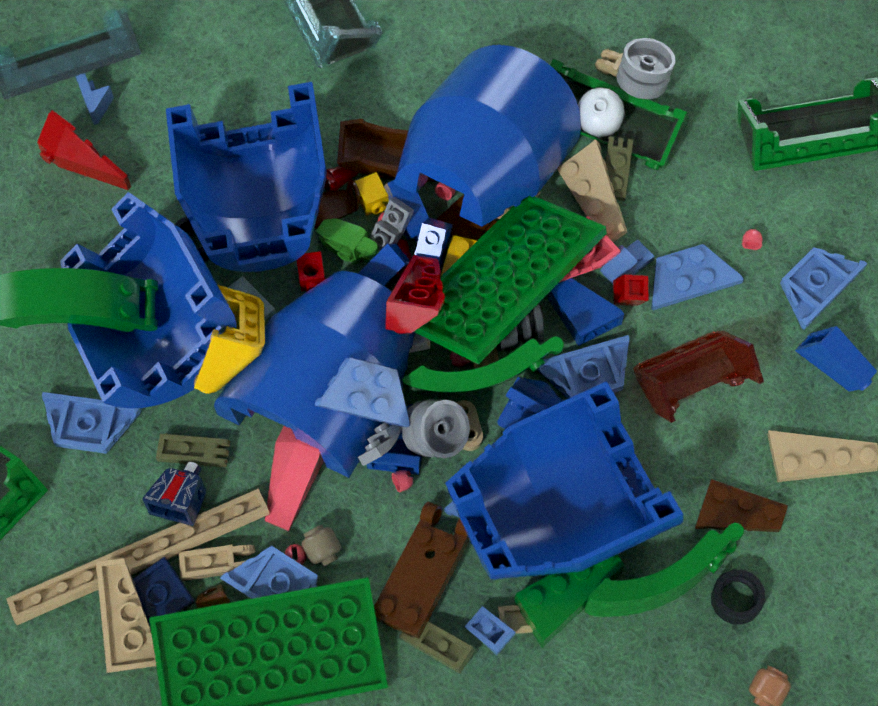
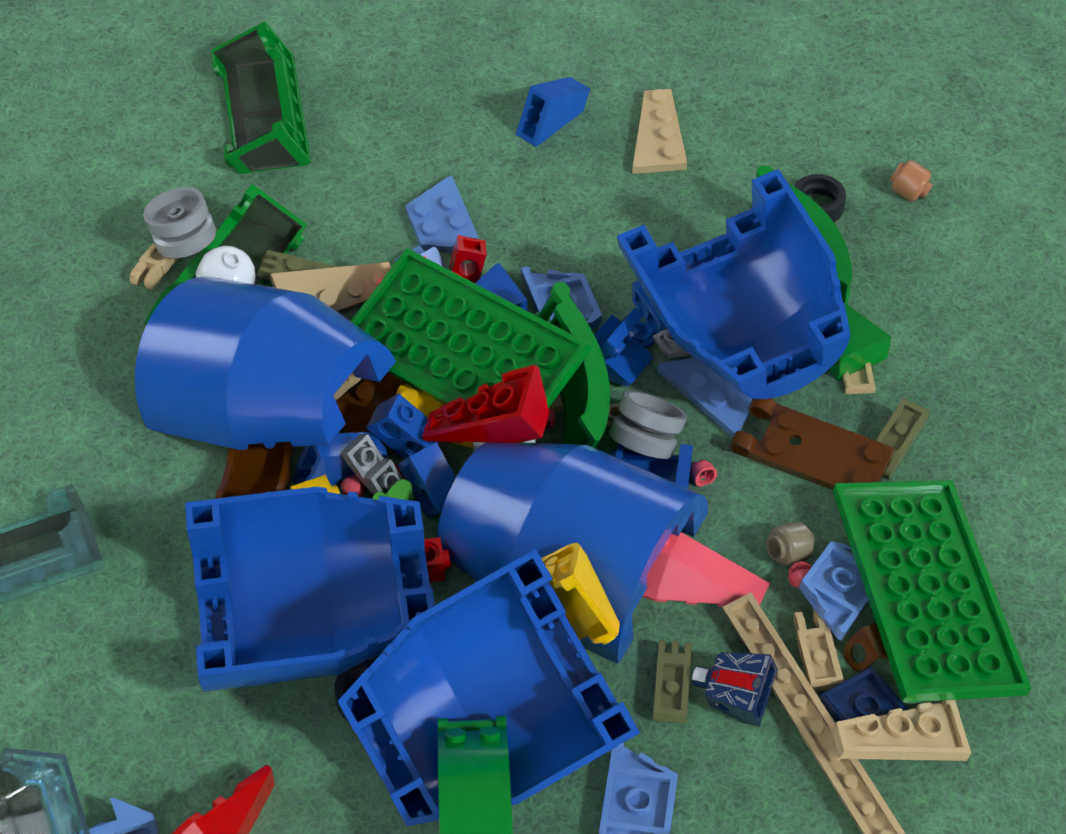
camera: 90 degrees left, 15 degrees down
(366, 392) = (625, 454): medium blue wing -> none
(380, 442) = (677, 467): light grey slope -> none
(490, 630) = (881, 386): medium blue slope -> none
(695, 367) = (549, 212): clear red windscreen -> none
(733, 505) = (720, 195): reddish brown wing -> none
(752, 239) = (402, 166): coral hinge -> none
(817, 282) = (460, 120): medium blue wing -> none

